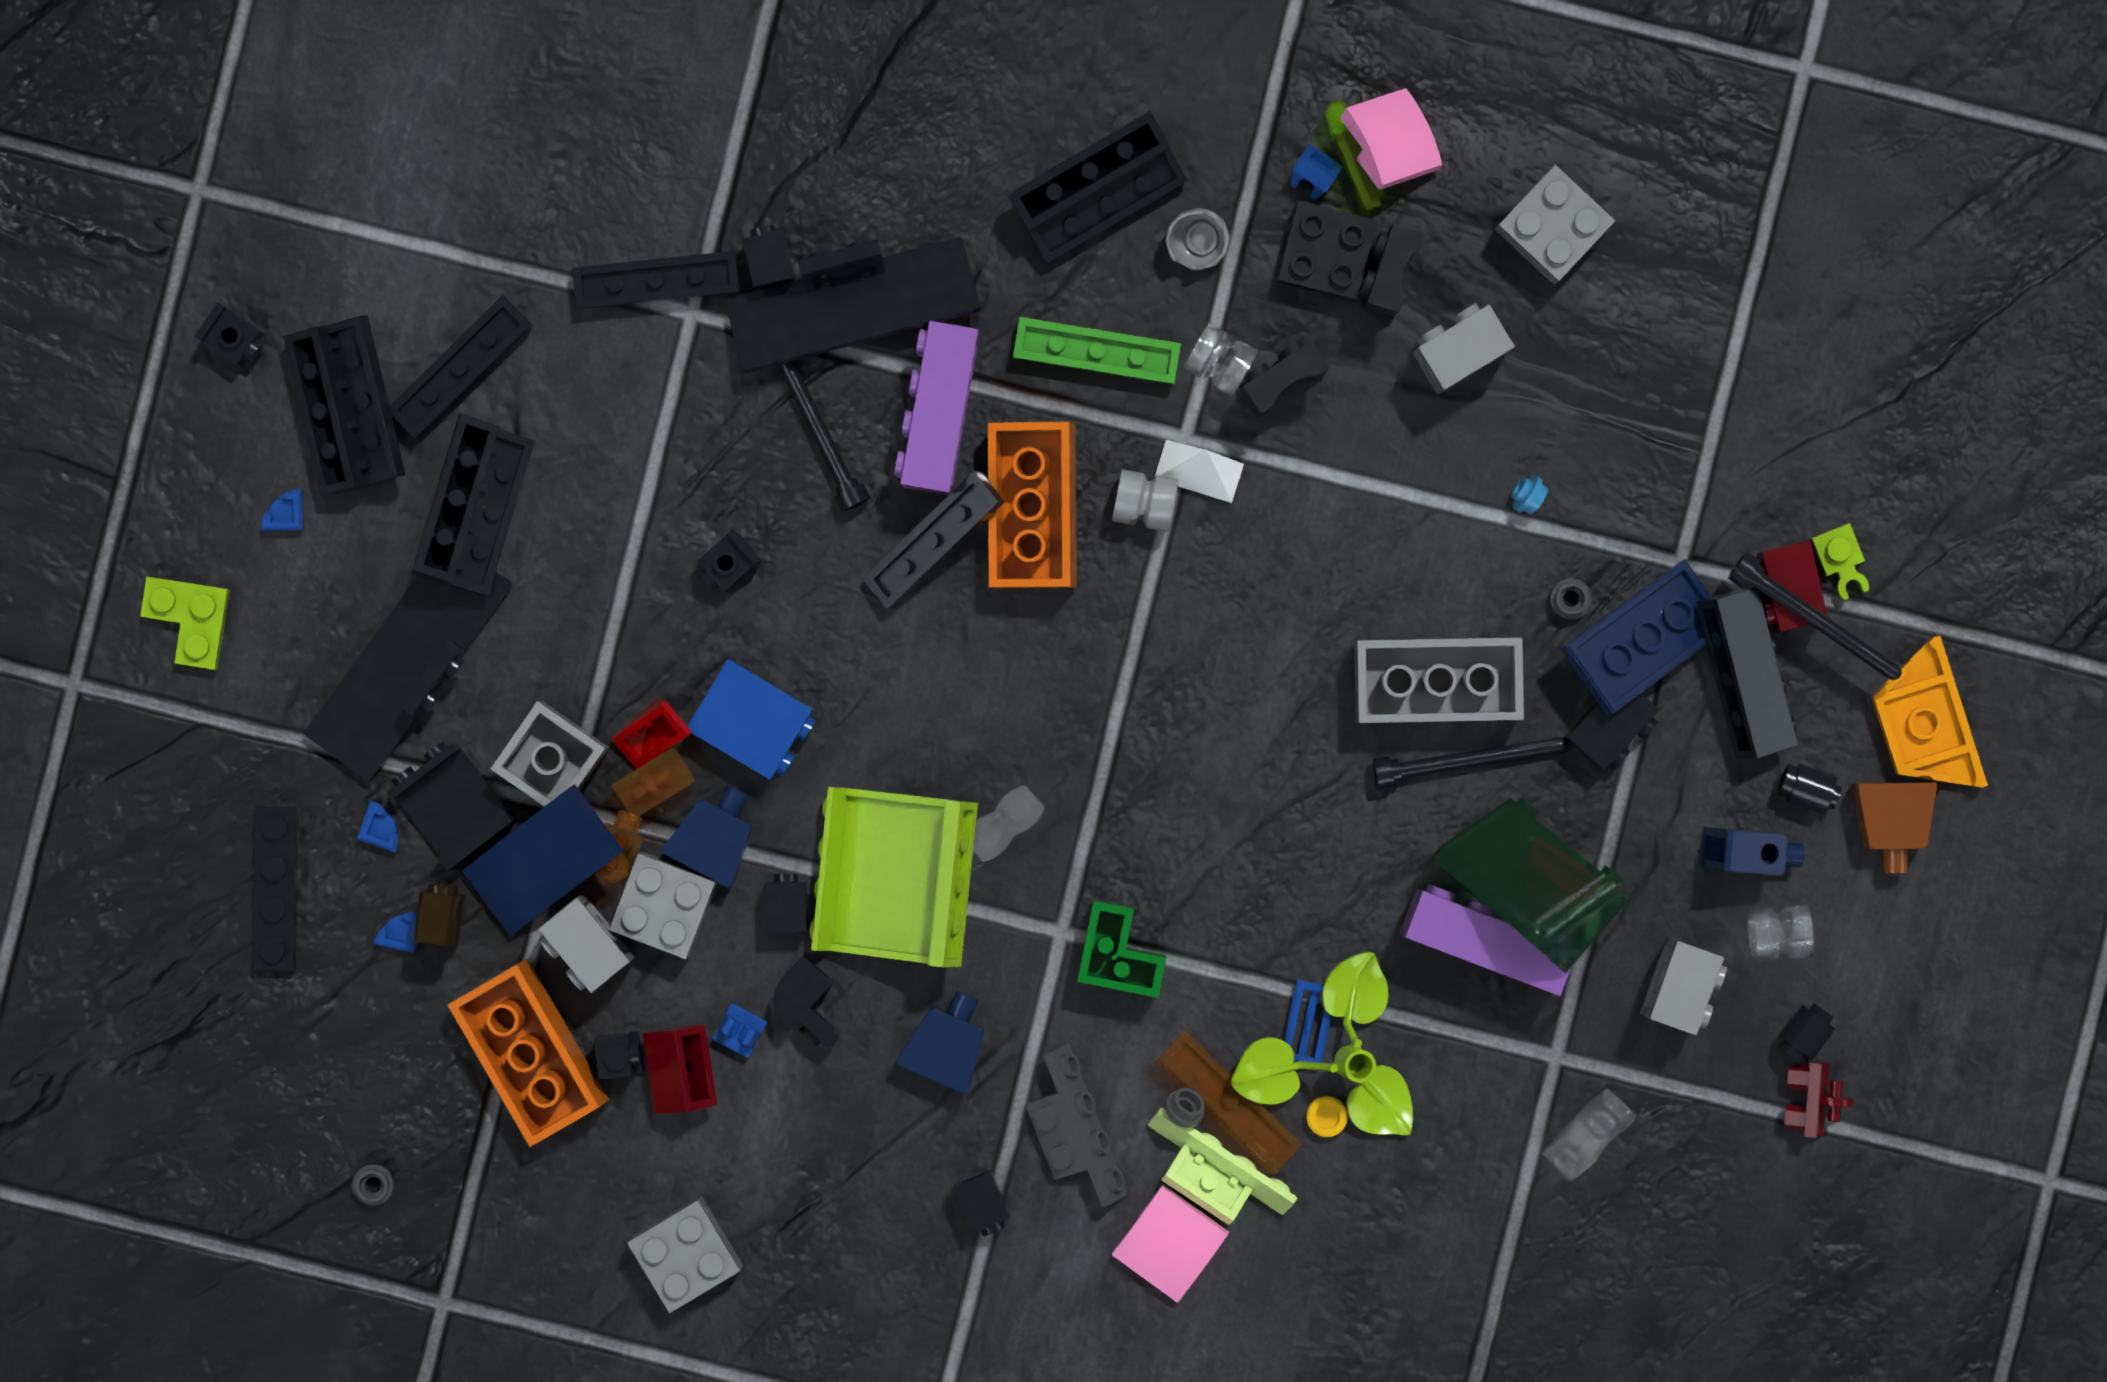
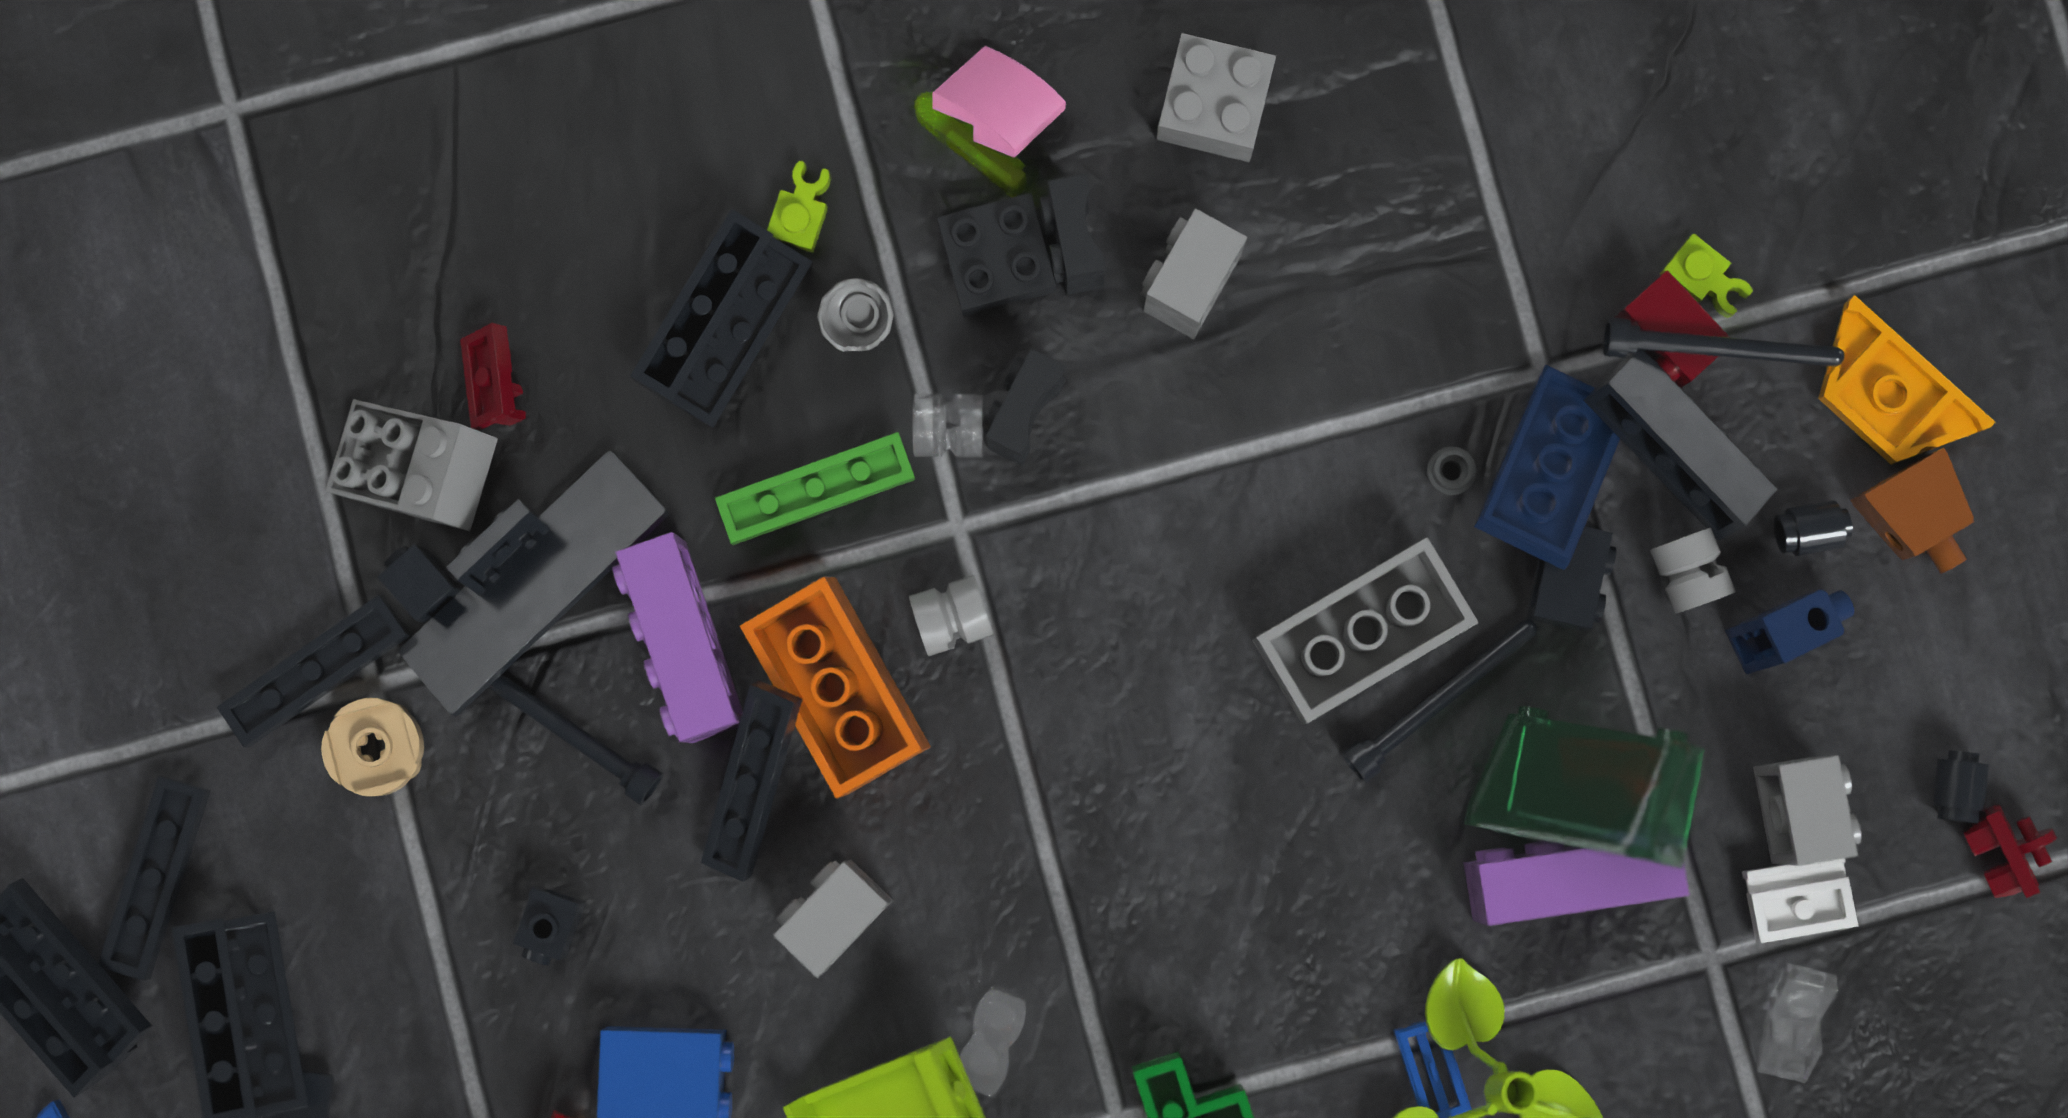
camera: 20 degrees left, 5 degrees down
(657, 340) = (349, 732): none -> tan plate
(809, 166) = (412, 464): none -> light grey slope
(902, 134) = (489, 379): none -> dark red plate
(938, 670) = (832, 916): none -> light grey brick
(1196, 138) = (799, 216): none -> lime plate
(1200, 470) = (992, 552): white slope -> none
(1317, 169) = (938, 176): blue tile -> none
(1529, 494) = (1347, 387): dark azure plate -> none
(1643, 1048) = (1799, 900): none -> white plate
(1703, 769) = (1692, 571): none -> light grey wheel
(1780, 933) = (1877, 692): clear wheel -> none

